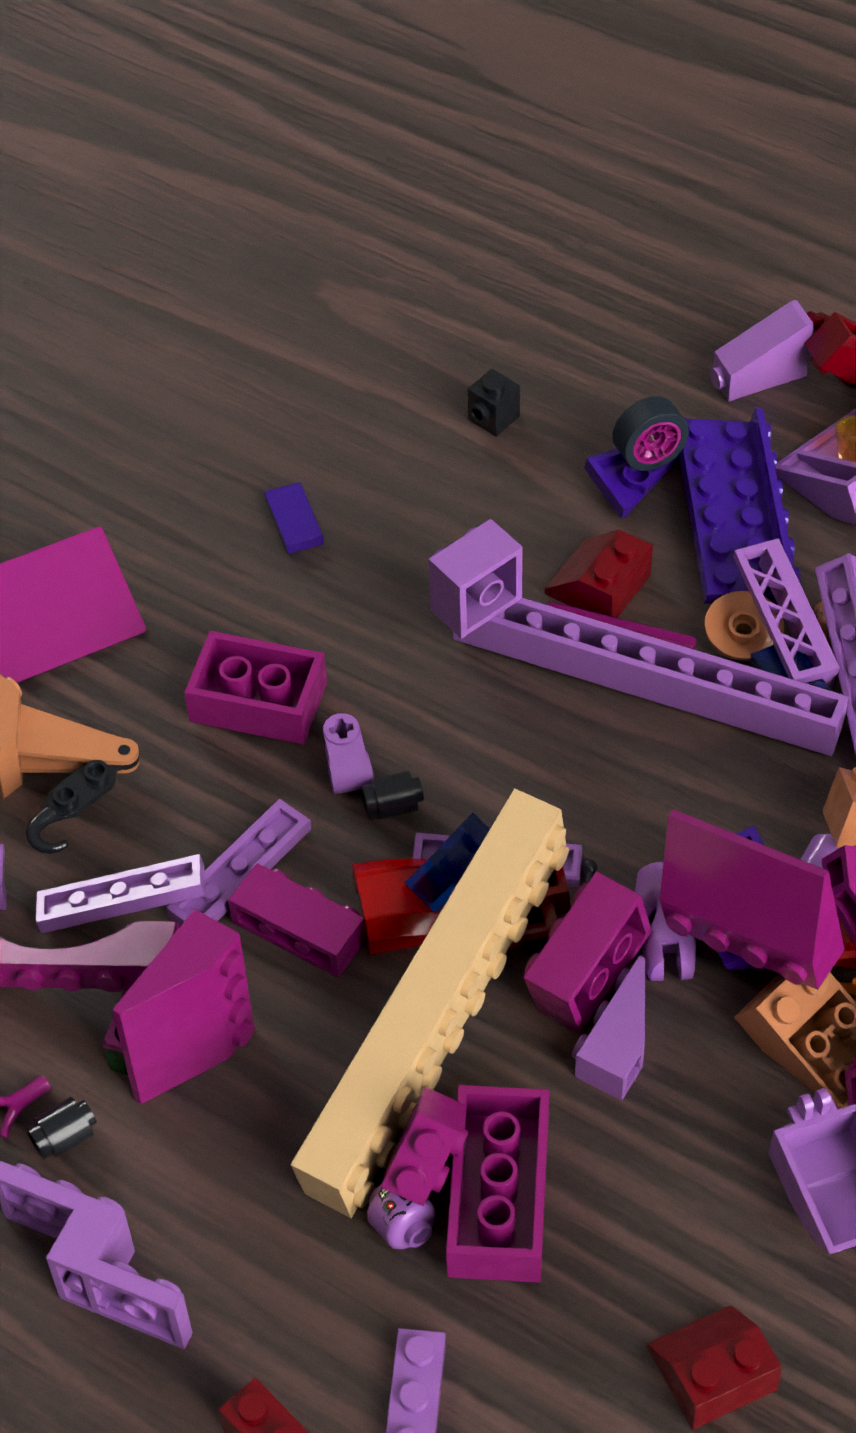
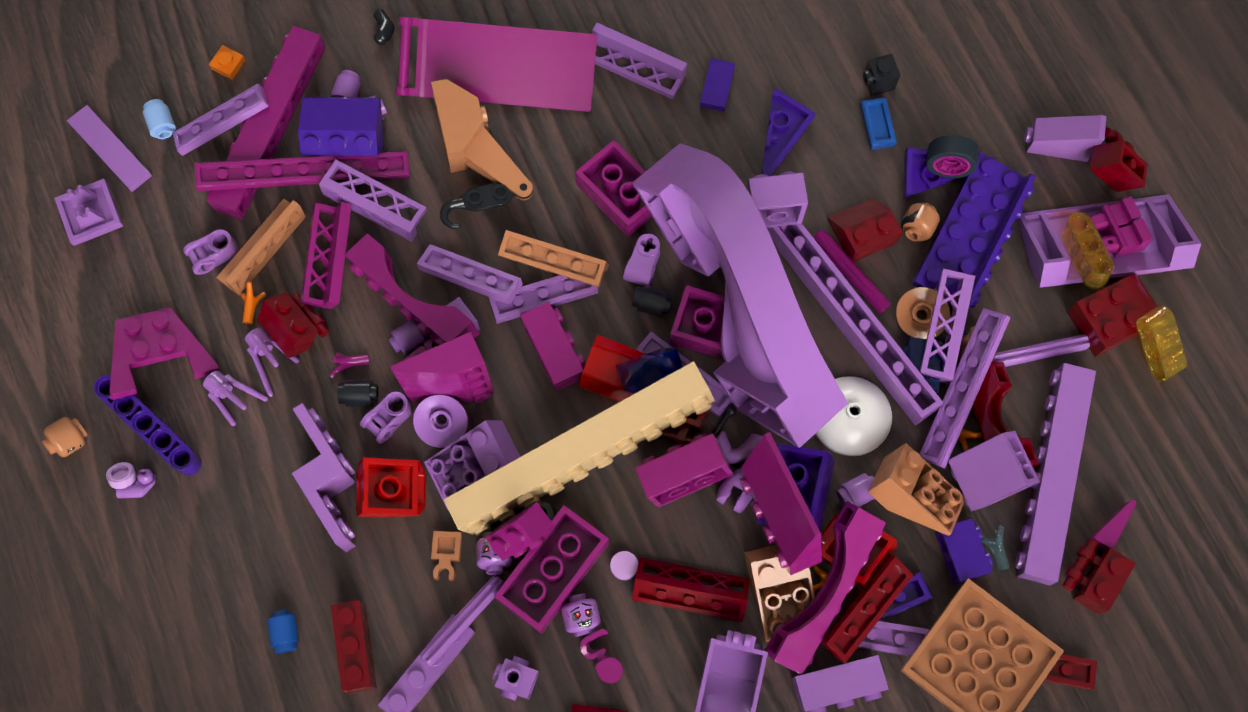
camera: 30 degrees right, 20 degrees up
(86, 1018) = (407, 337): none -> medium lavender brick
(123, 1138) = (386, 417): none -> medium lavender piece
(169, 534) = (643, 57): none -> medium lavender fence
(189, 1220) = (390, 488): none -> red slope
(224, 812) = (553, 258): none -> nougat fence
(230, 1093) = (431, 429): none -> medium lavender dish
(278, 1120) = (471, 457): none -> medium lavender slope
(332, 1253) = (445, 549): none -> nougat plate
(415, 517) = (785, 127): none -> dark purple wing
(420, 1323) = (461, 621): none -> medium lavender axle
(475, 774) = (699, 322): none -> magenta brick
(528, 459) = (878, 123): none -> blue tile
(549, 1351) = (525, 683): none -> medium lavender brick
(578, 1220) = (581, 615): none -> medium lavender head
(581, 712) = (767, 348): none -> medium lavender piece
(589, 1129) = (624, 565): none -> lavender tile
(615, 1047) = (670, 528): medium lavender slope -> none
(663, 1265) = (607, 668): none -> magenta leg
(665, 529) = (920, 222): none -> nougat head
(700, 1105) = (691, 593): none -> dark red fence
(726, 798) = (862, 432): none -> white dish

